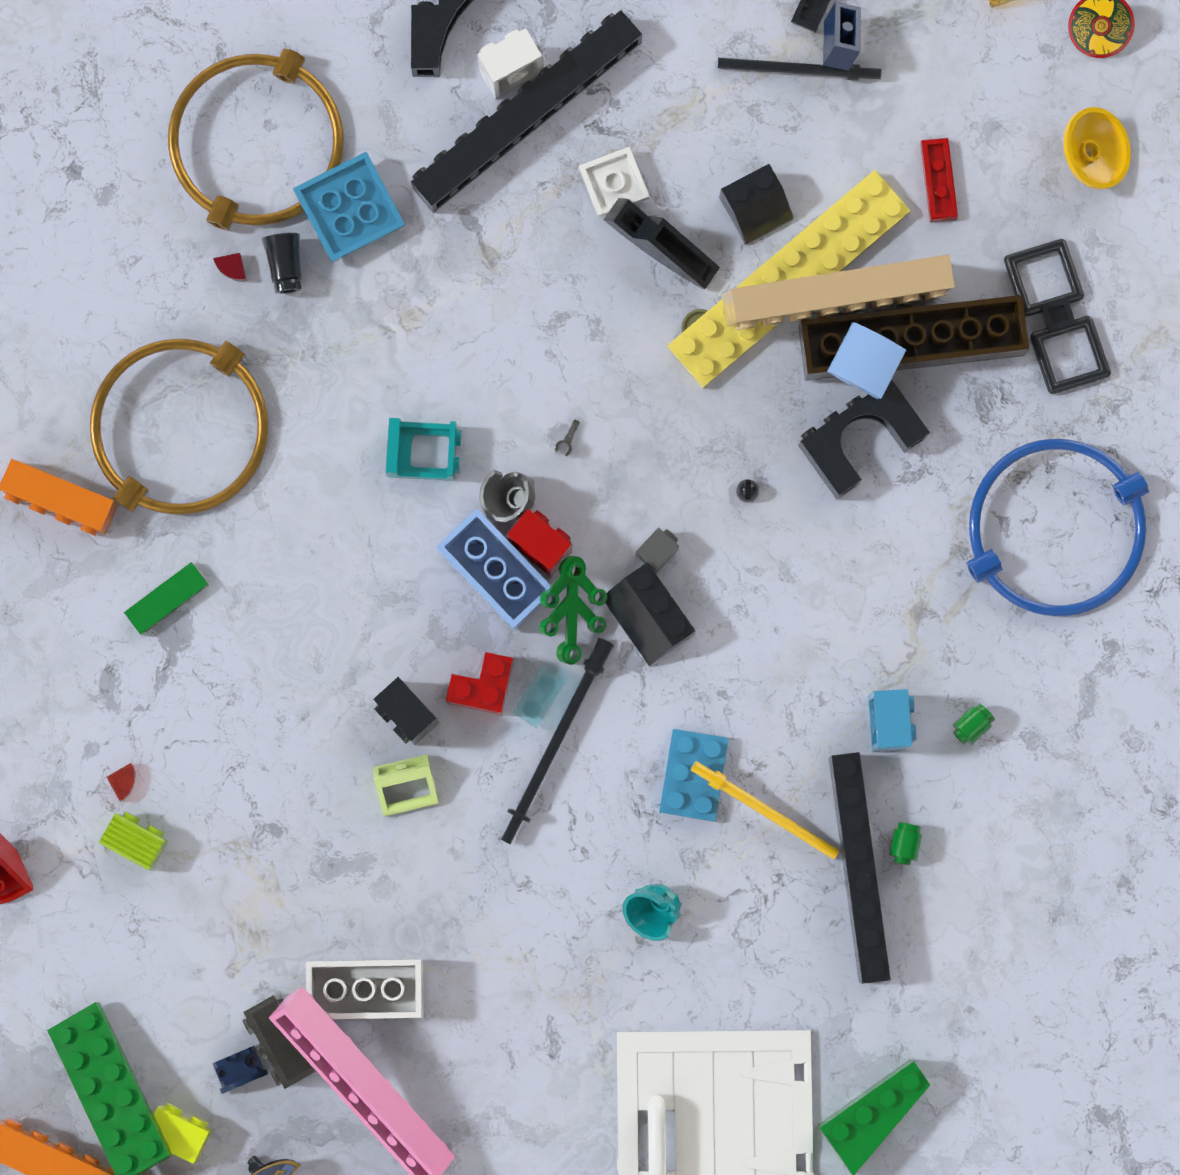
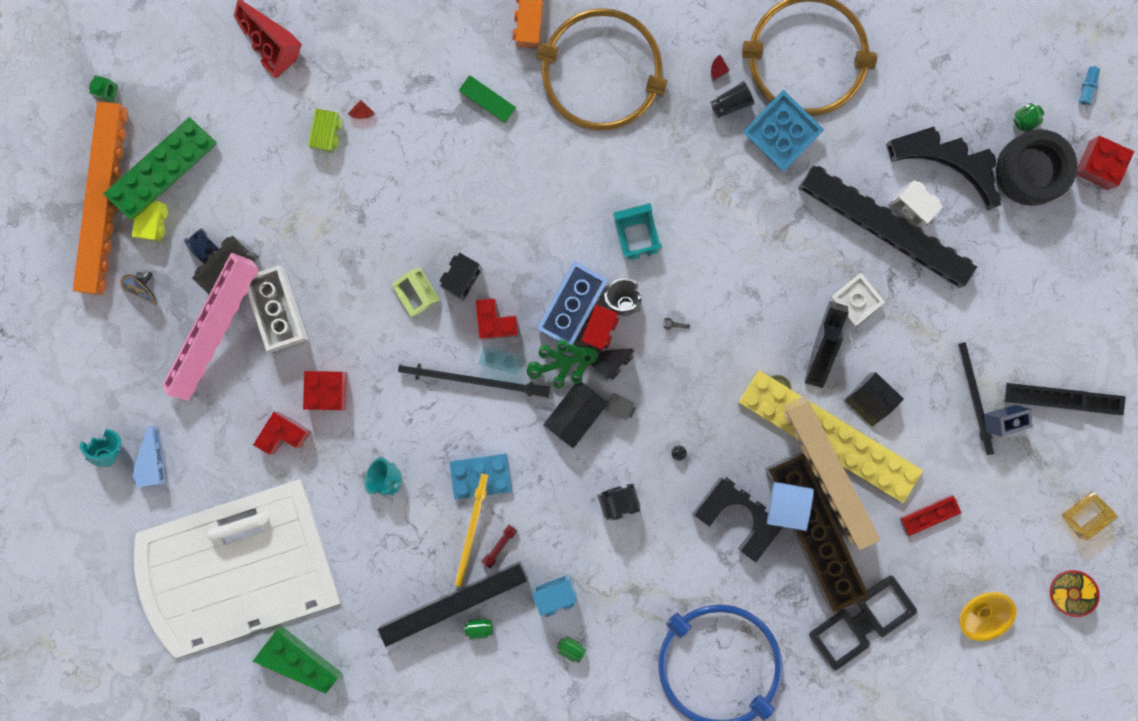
camera: 70 degrees right, 5 degrees up
(503, 955) = (324, 390): none -> red brick
(536, 1037) = (280, 429): none -> red brick
(591, 541) = (610, 360): none -> black slope
(789, 591) = (619, 501): none -> black brick
(814, 798) = (490, 559): none -> dark red bar

